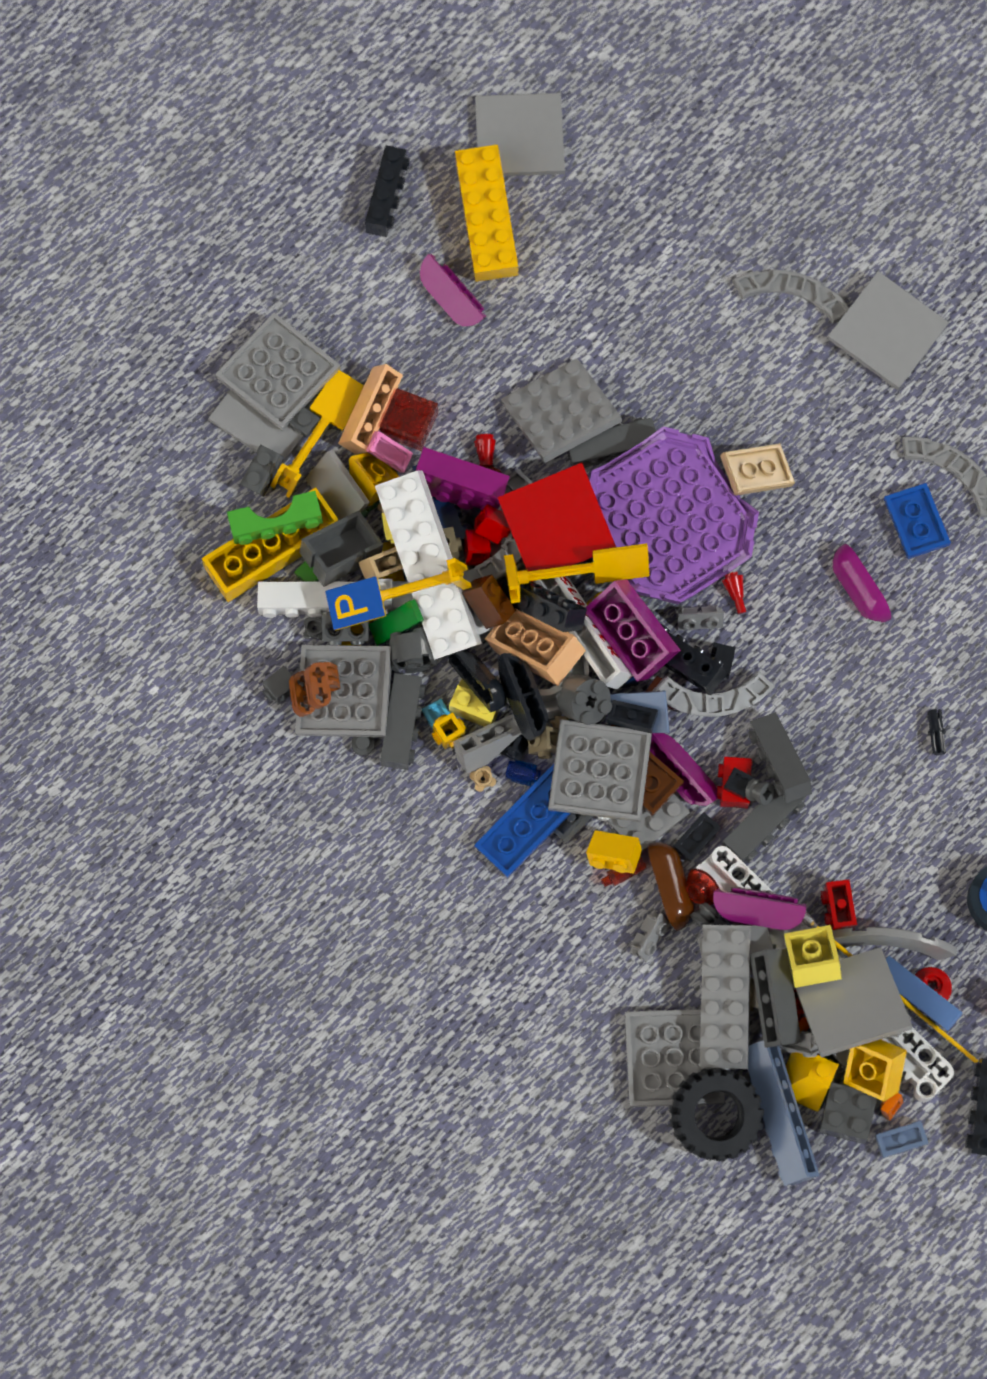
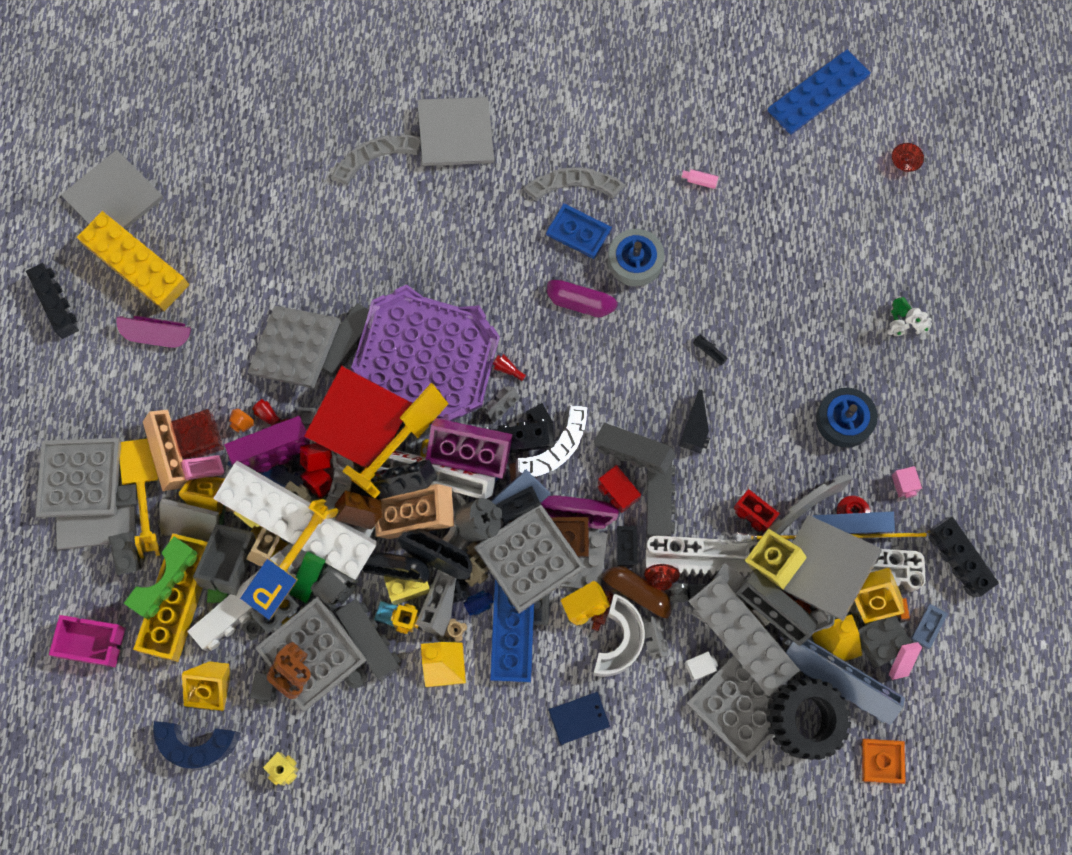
camera: 40 degrees left, 0 degrees up
(169, 523) = (87, 641): none -> dark pink piece
(183, 698) = (178, 752): none -> dark blue brick
(234, 642) = (206, 686): none -> yellow slope
(237, 764) = (274, 768): none -> light yellow brick
(447, 796) = (443, 663): none -> yellow slope
(457, 438) = (240, 421): none -> orange cone
(521, 944) = (579, 718): none -> dark blue container
(619, 922) = (633, 639): none -> white brick
(666, 993) = (701, 666): none -> white brick
(737, 782) = (623, 487): black tile -> none
(751, 1212) = (883, 761): none -> orange tile
(757, 469) = (453, 280): tan tile -> none
(759, 791) = (642, 481): dark grey wheel -> none
(759, 908) = (713, 557): magenta brick -> none
(848, 1144) = (905, 660): none -> bright pink tile
(853, 791) = (696, 429): none -> black slope
(946, 589) = (636, 257): none -> wheel

